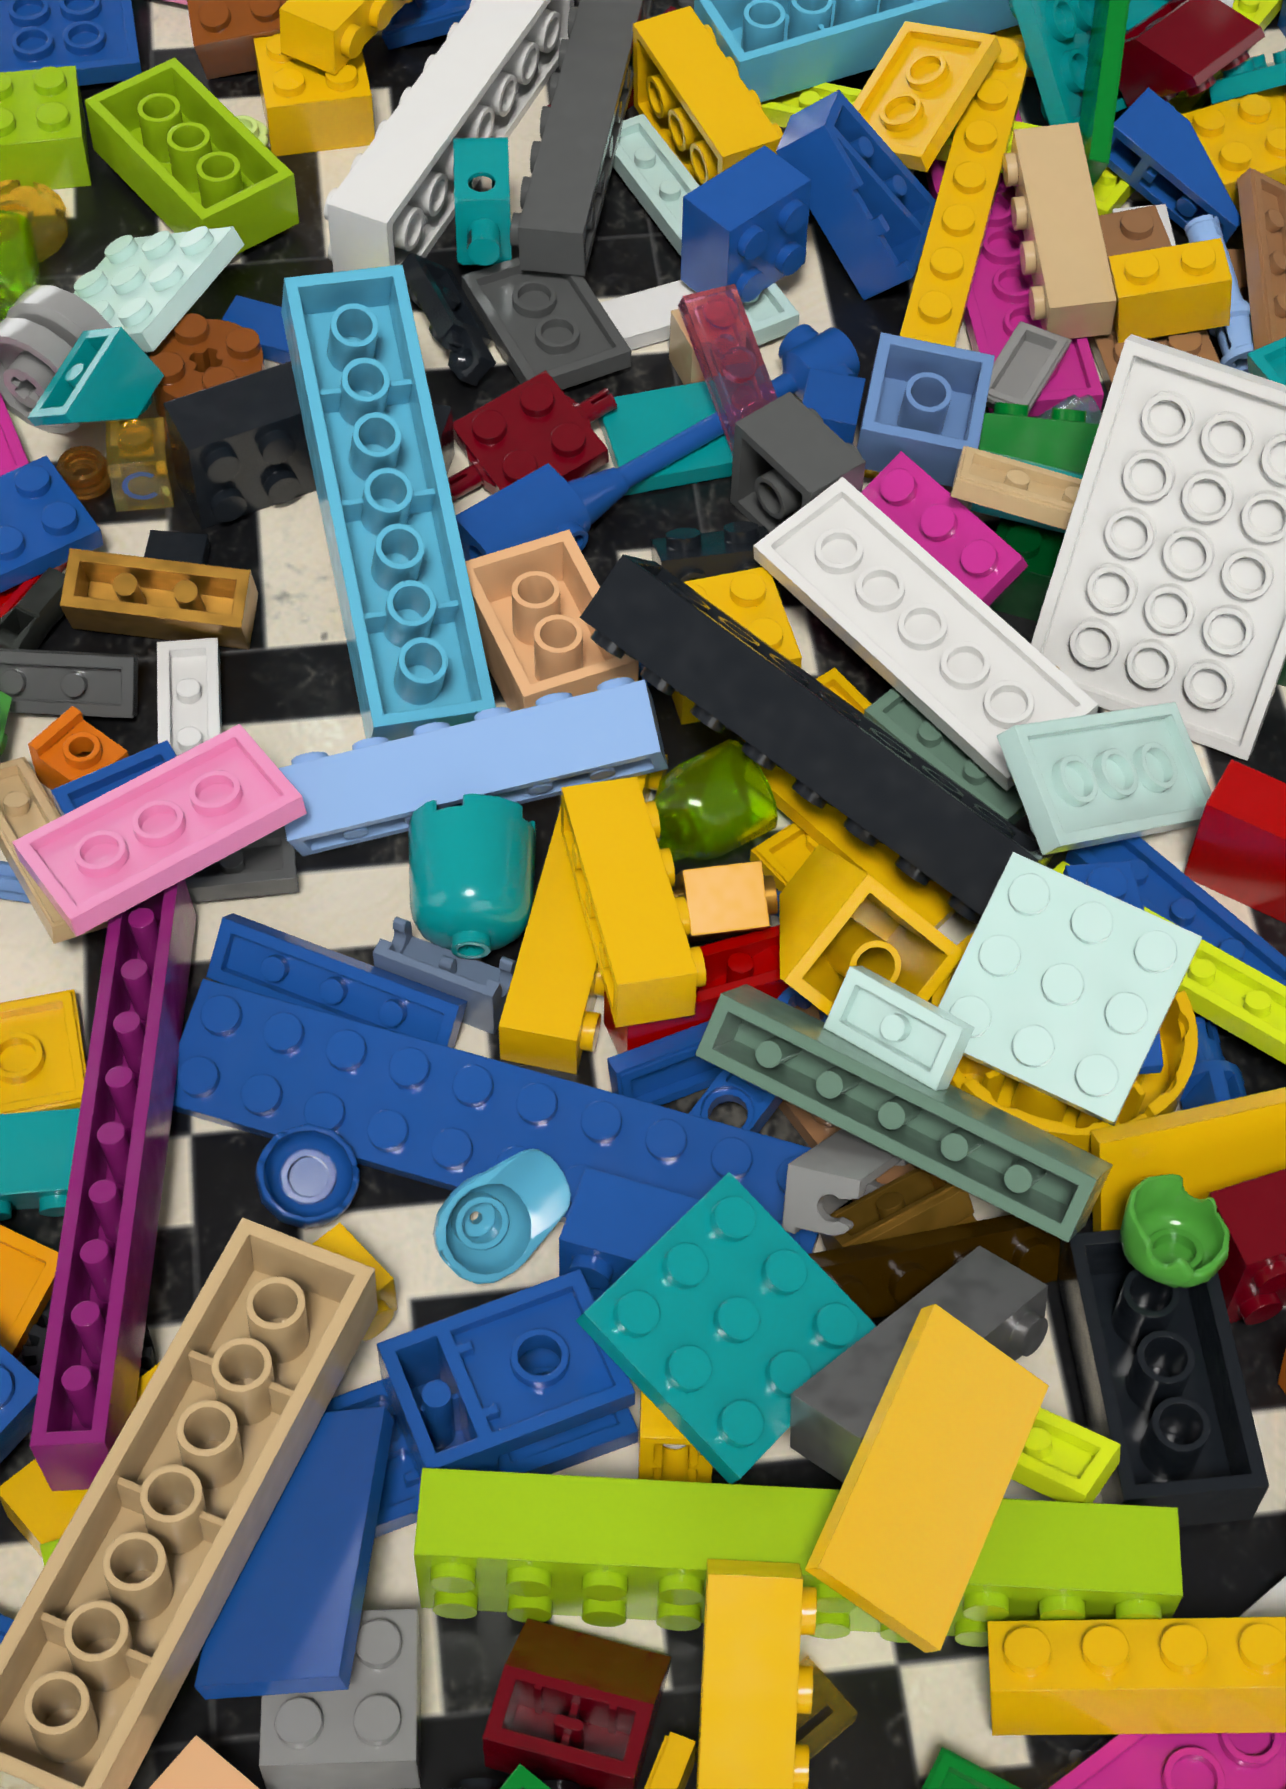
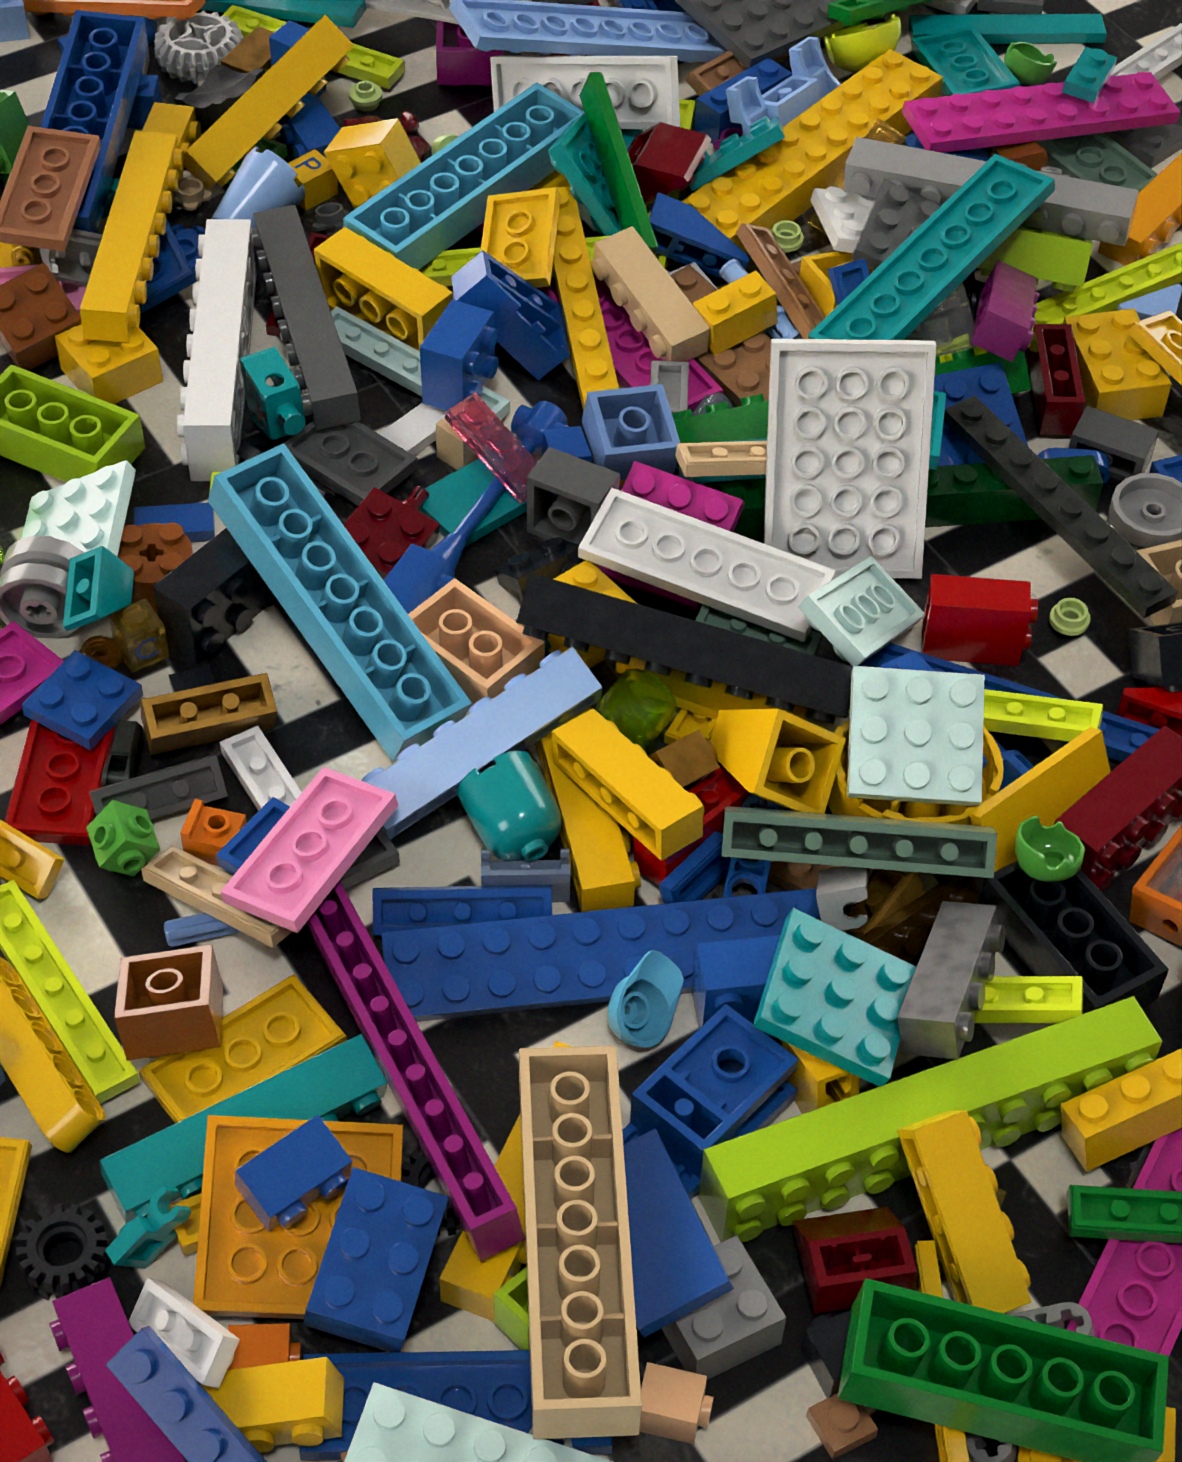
camera: 25 degrees left, 5 degrees down
(307, 1176) = (513, 1022): blue hair -> none
(898, 1027) = (835, 793): light aqua plate -> none
(928, 1479) = (999, 1031): yellow tile -> none

